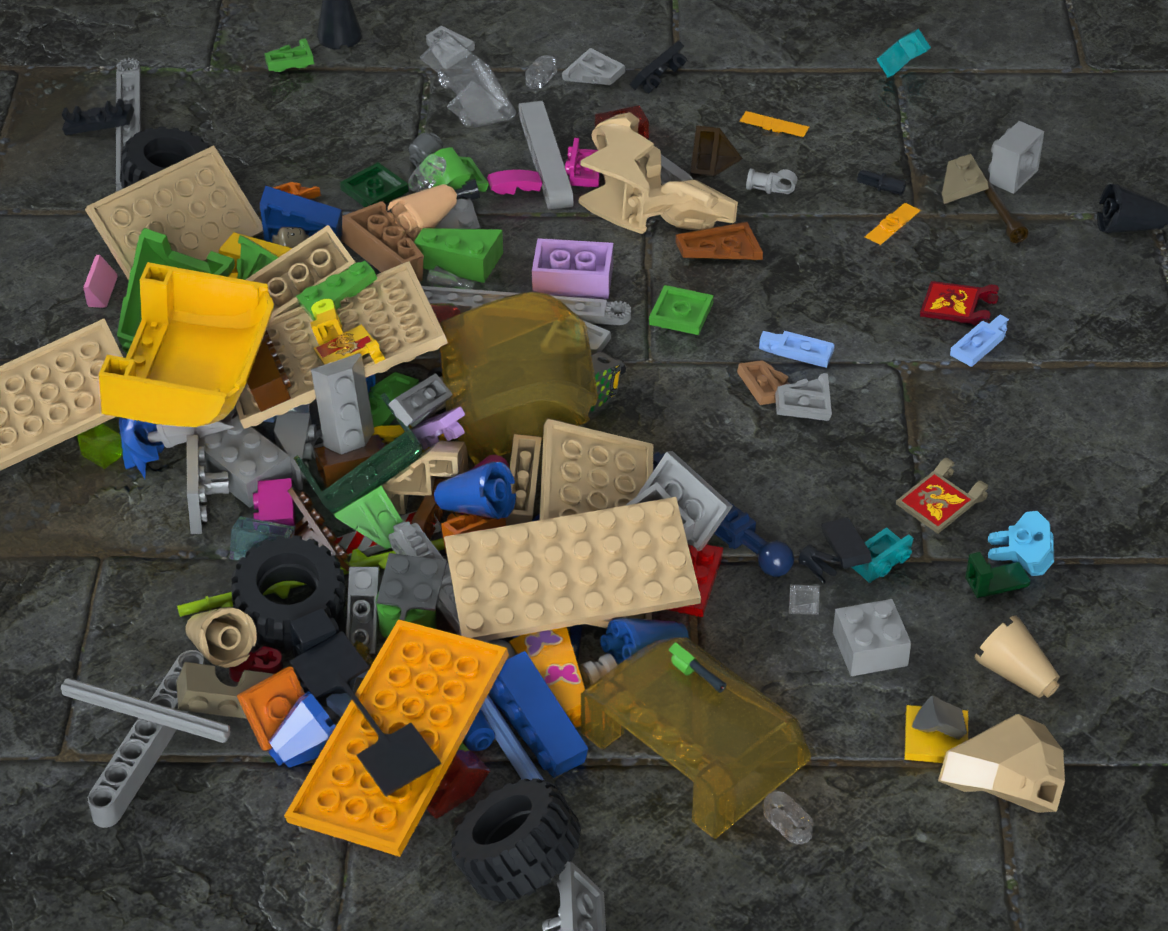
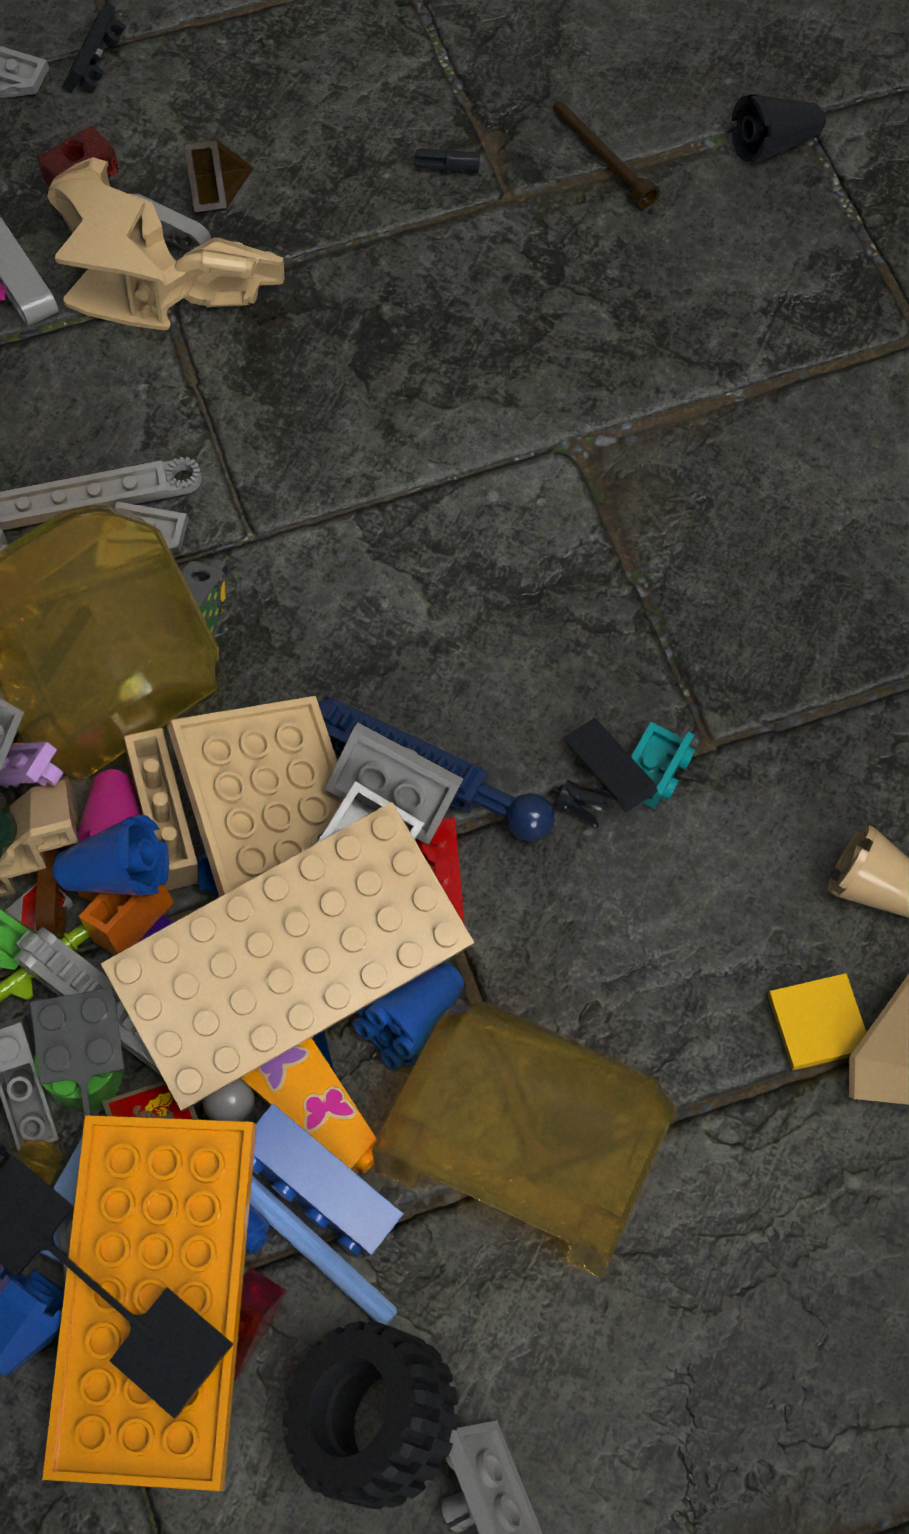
camera: 20 degrees left, 20 degrees up
(573, 268) = (98, 424): lavender brick -> none
(578, 174) = (47, 237): dark pink bracket -> none
(594, 671) = (370, 1075): light grey wheel -> none
(681, 310) = (264, 446): bright green plate -> none
(687, 664) = (499, 1062): piece -> none
(721, 242) = (277, 319): dark orange wing -> none
(762, 380) = (418, 532): medium nougat wing -> none
(771, 181) = (308, 200): light grey connector -> none
(775, 124) = (275, 100): light orange piece -> none
(784, 820) = (691, 1209): clear beam -> none
(797, 347) = (436, 462): light blue hinge -> none
(804, 599) = (584, 864): clear slope -> none
(805, 399) = (476, 545): light grey wing -> none
(871, 637) = (692, 902): light grey brick -> none
(892, 223) = (482, 221): light orange piece -> none
(938, 500) = (693, 650): flag -> none
(941, 717) = (823, 1007): dark grey tile -> none
(958, 302) = (608, 329): flag -> none
(963, 179) = (549, 127): dark tan wing -> none
(980, 341) = (660, 383): light blue hinge -> none
(990, 581) = (809, 754): dark green bracket -> none
(1015, 156) = (607, 77): light grey brick -> none
(1029, 544) = (827, 695): medium azure hinge -> none

